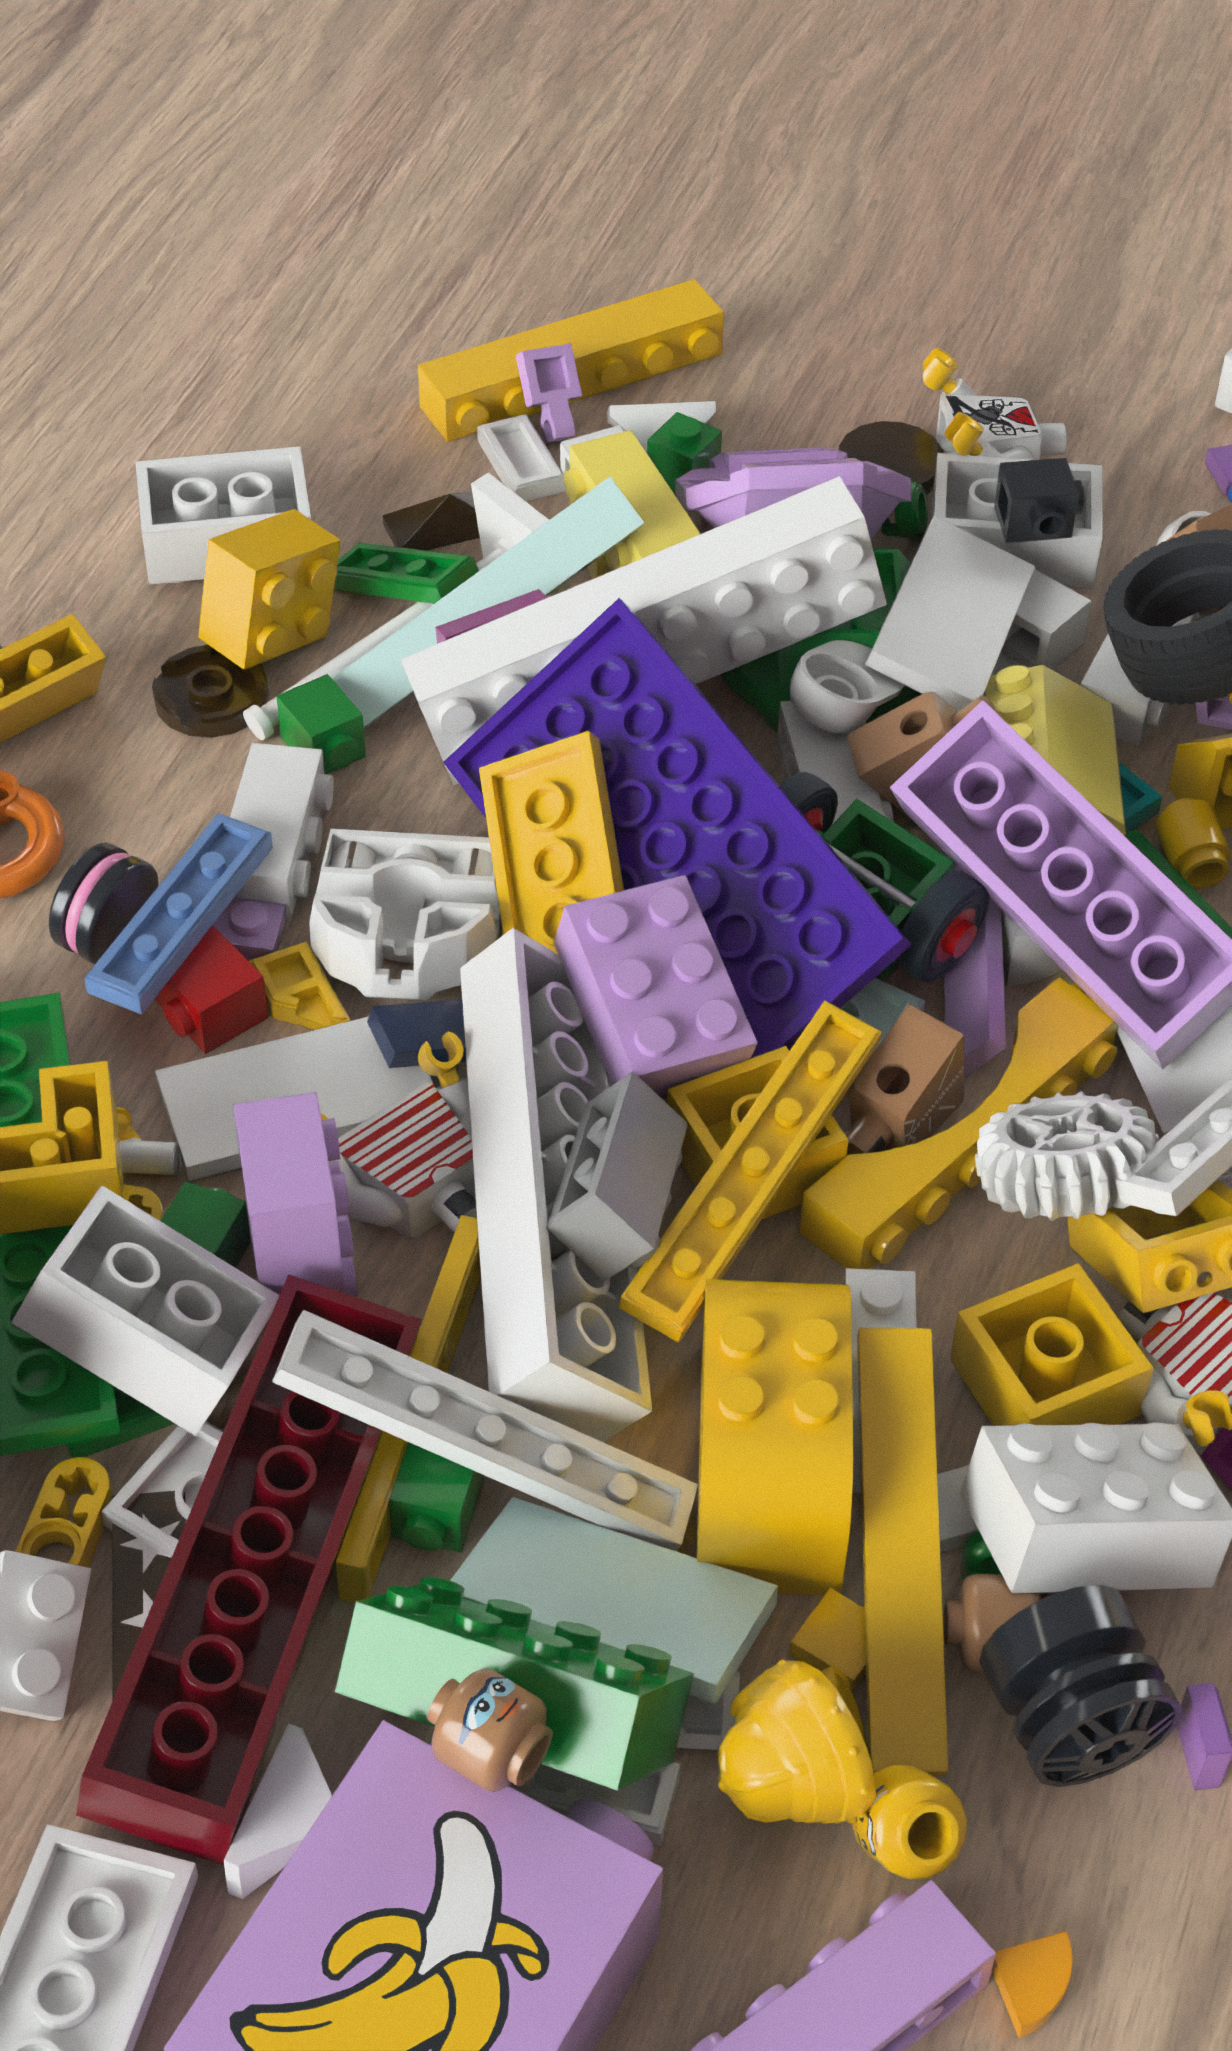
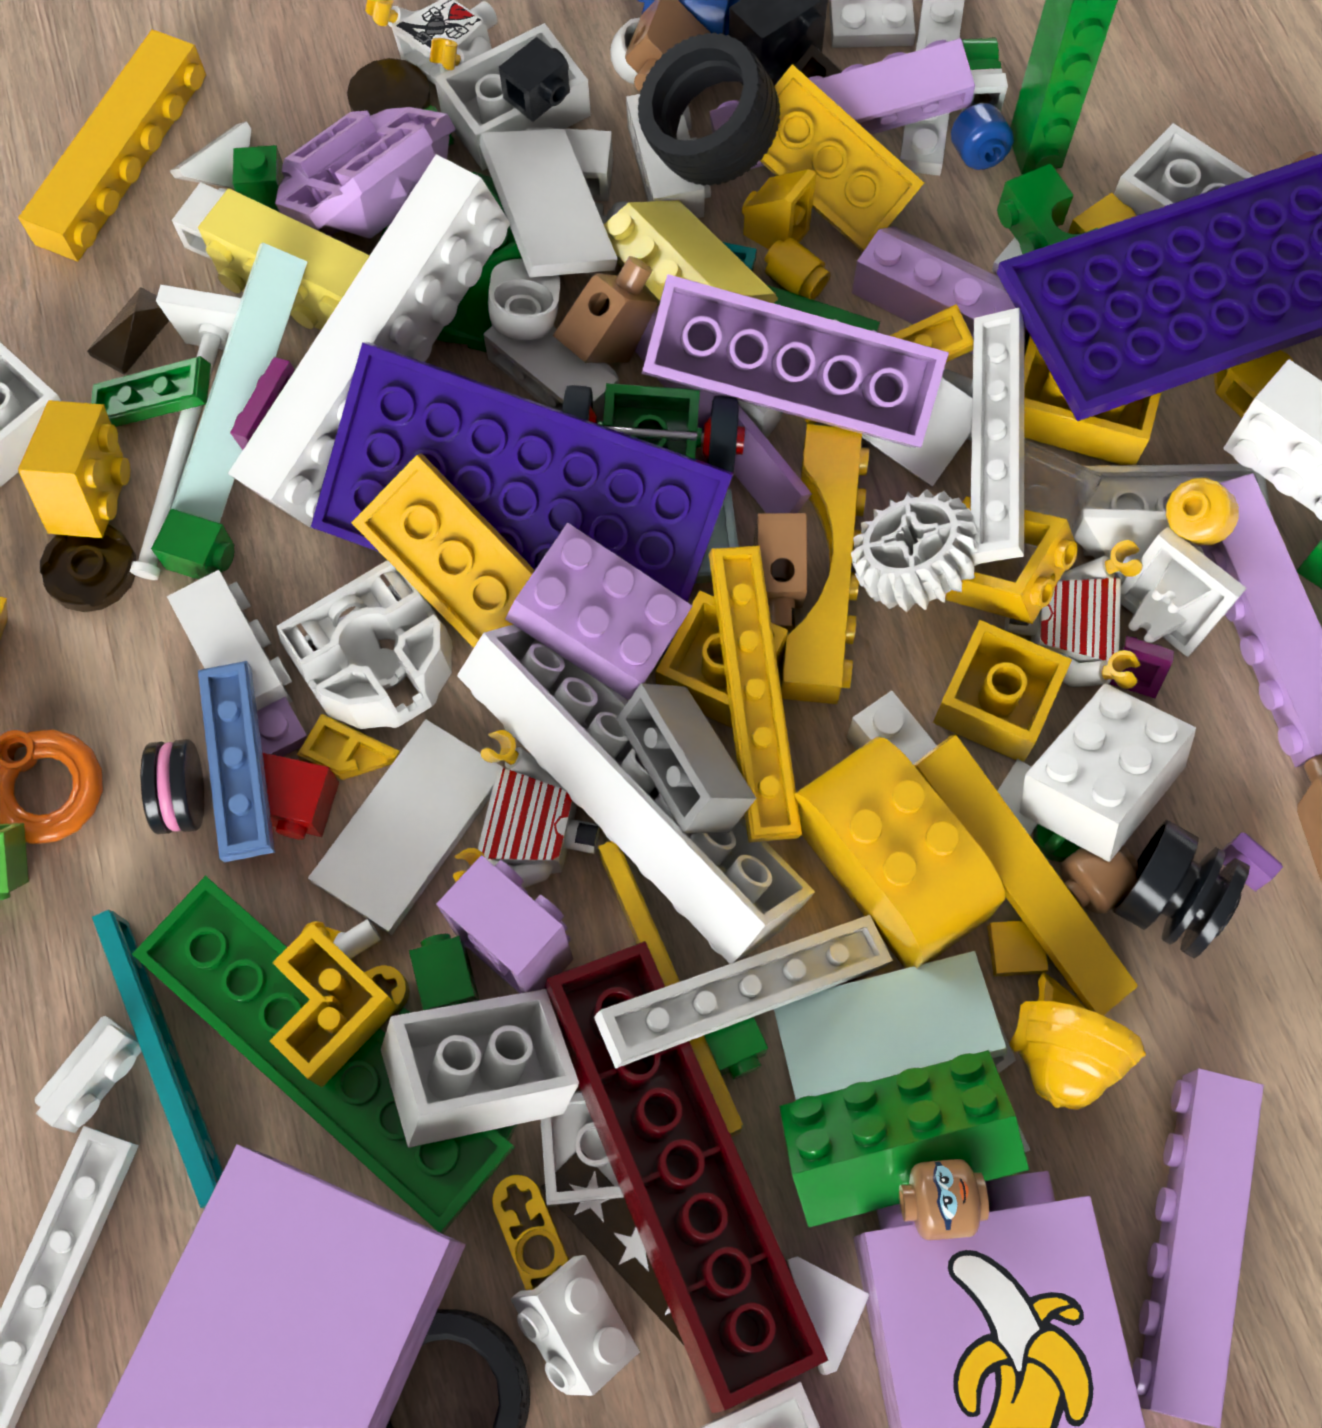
camera: 35 degrees left, 20 degrees up
(406, 1027) = (457, 729): dark blue tile -> none
(521, 458) = (143, 245): white tile -> none
(550, 381) = (125, 178): lavender plate -> none
(913, 1824) = (1164, 1034): yellow head -> none
(1033, 1979) = (1274, 1069): light orange tile -> none

